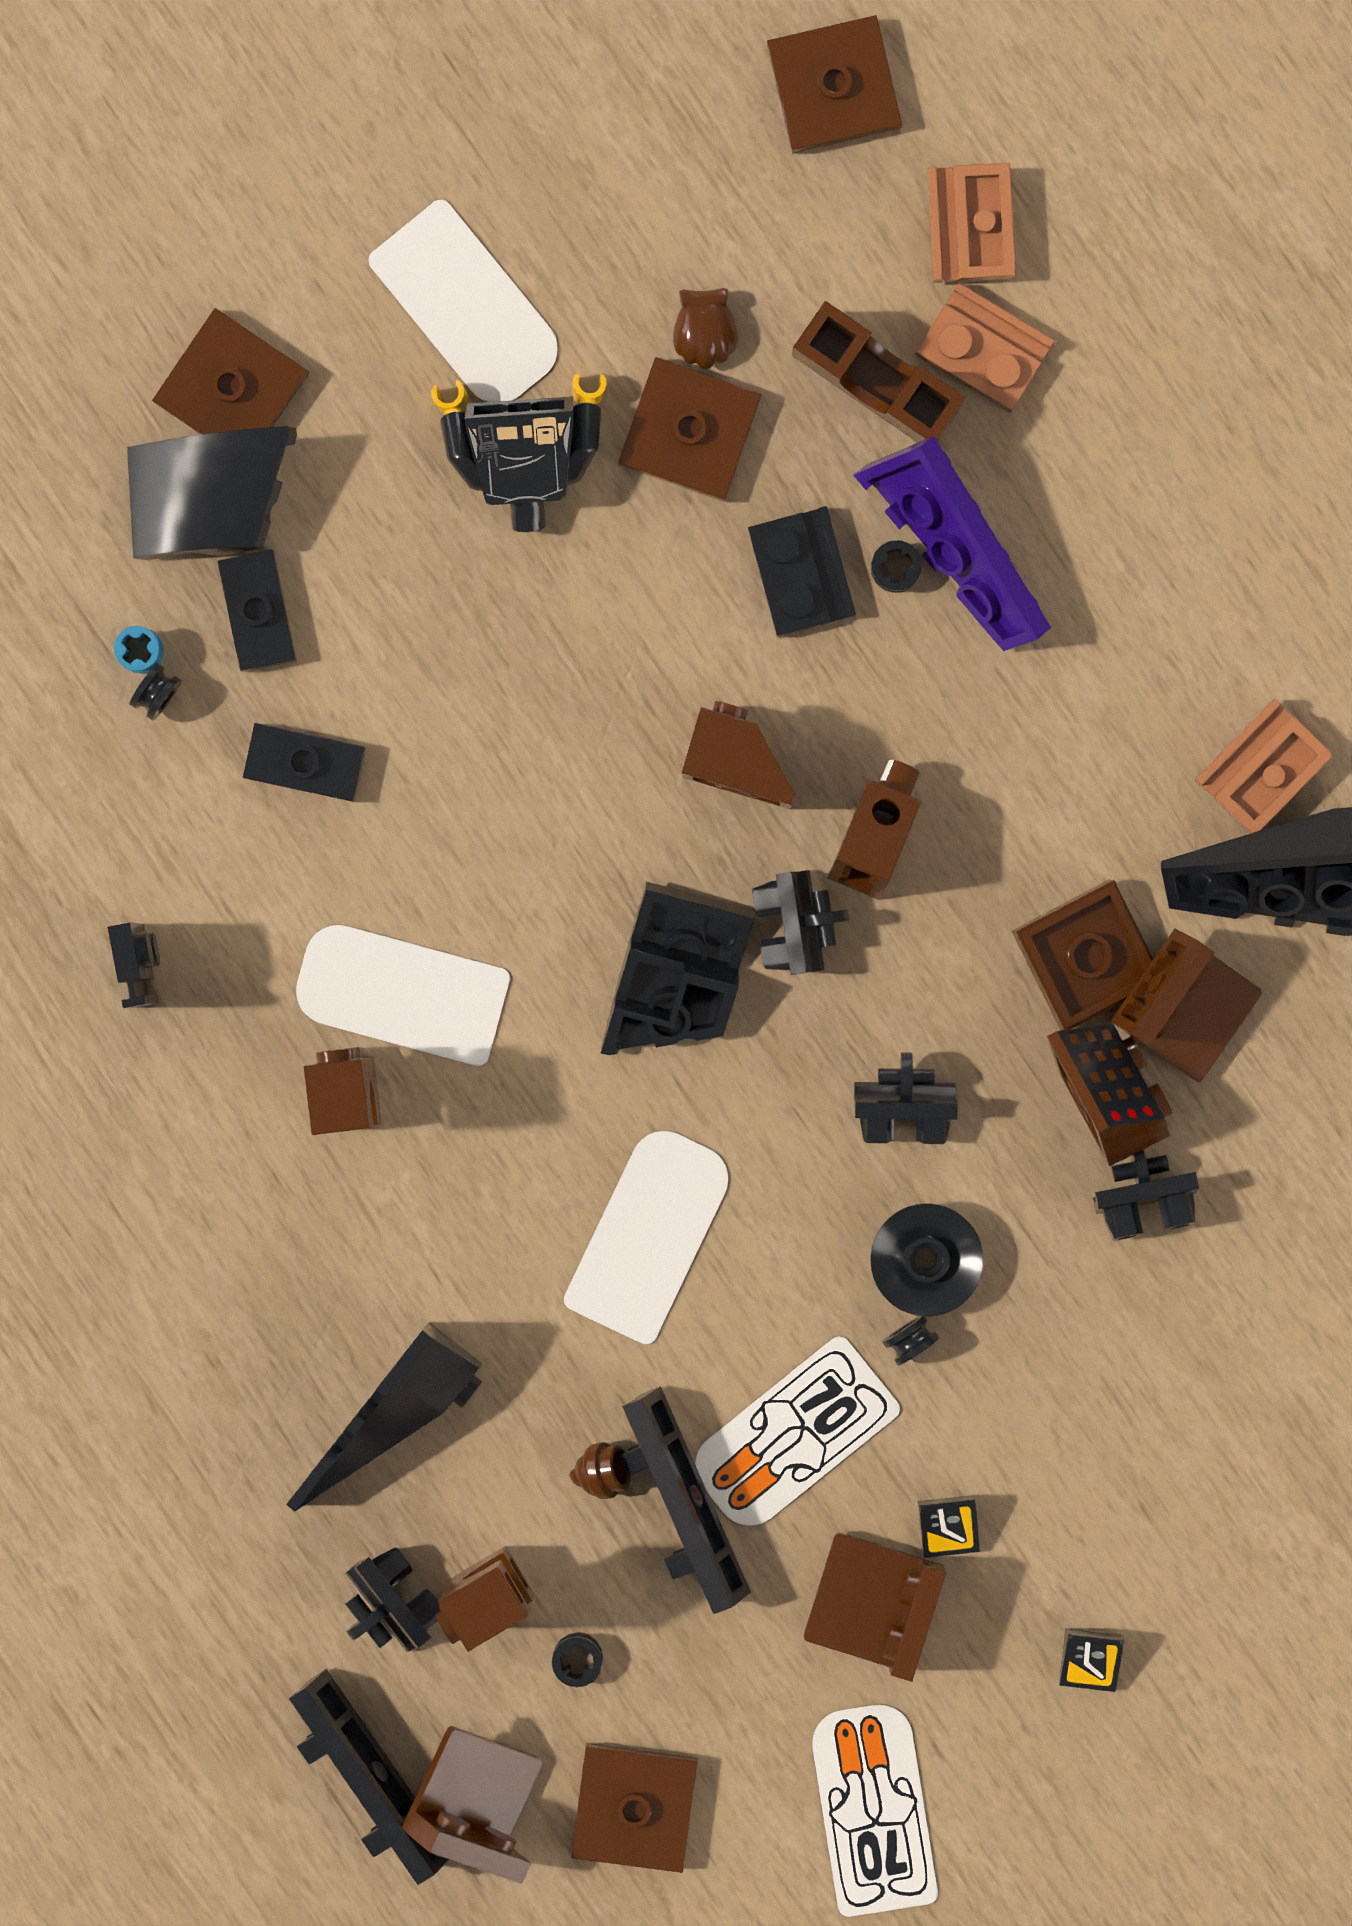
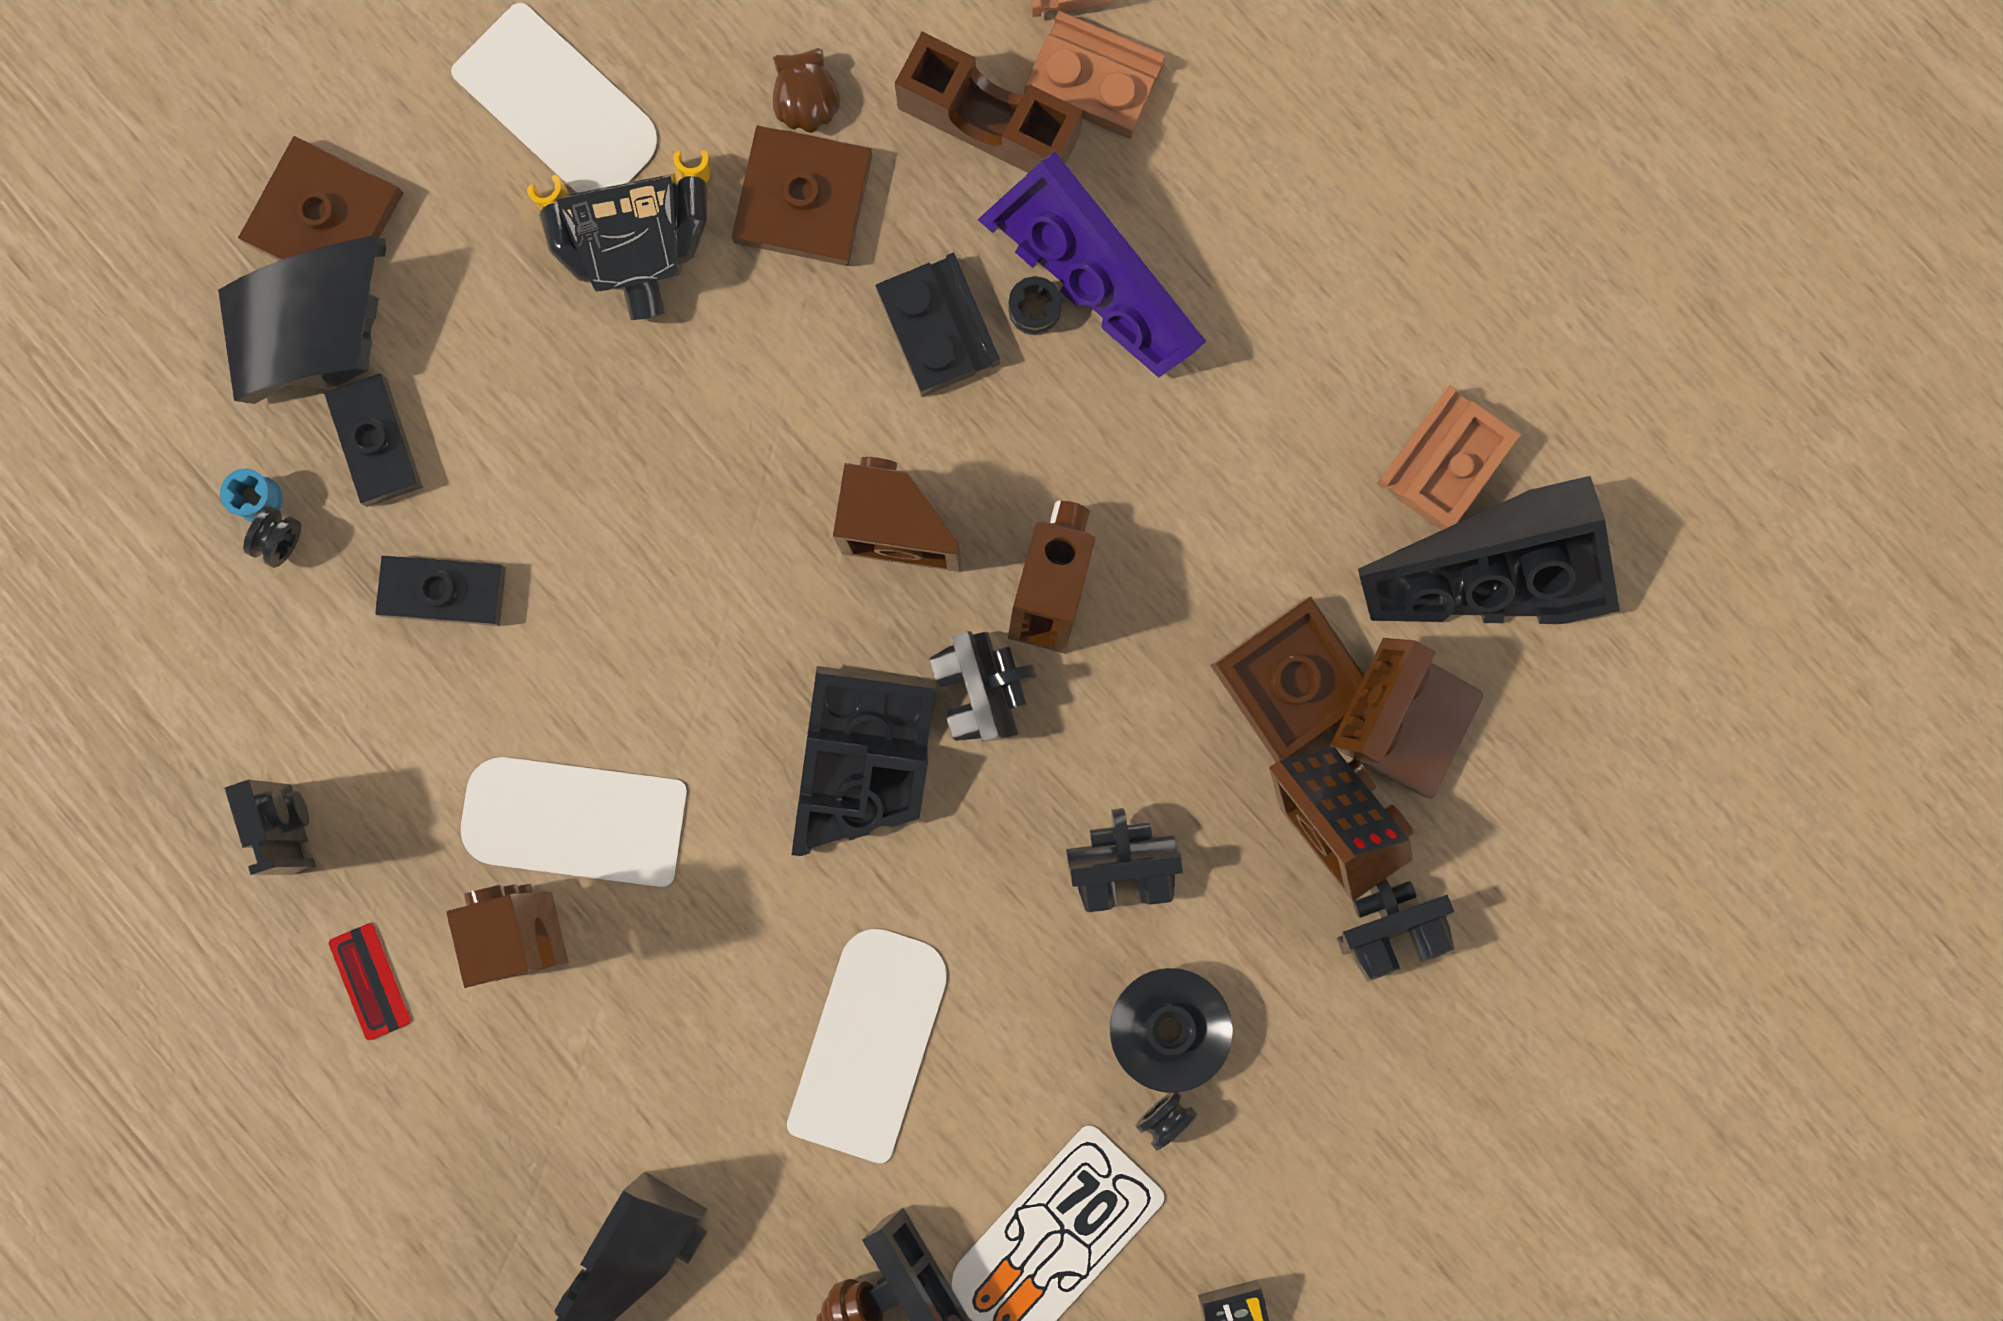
camera: 10 degrees left, 5 degrees down
(197, 1115) = (369, 981): none -> sticker

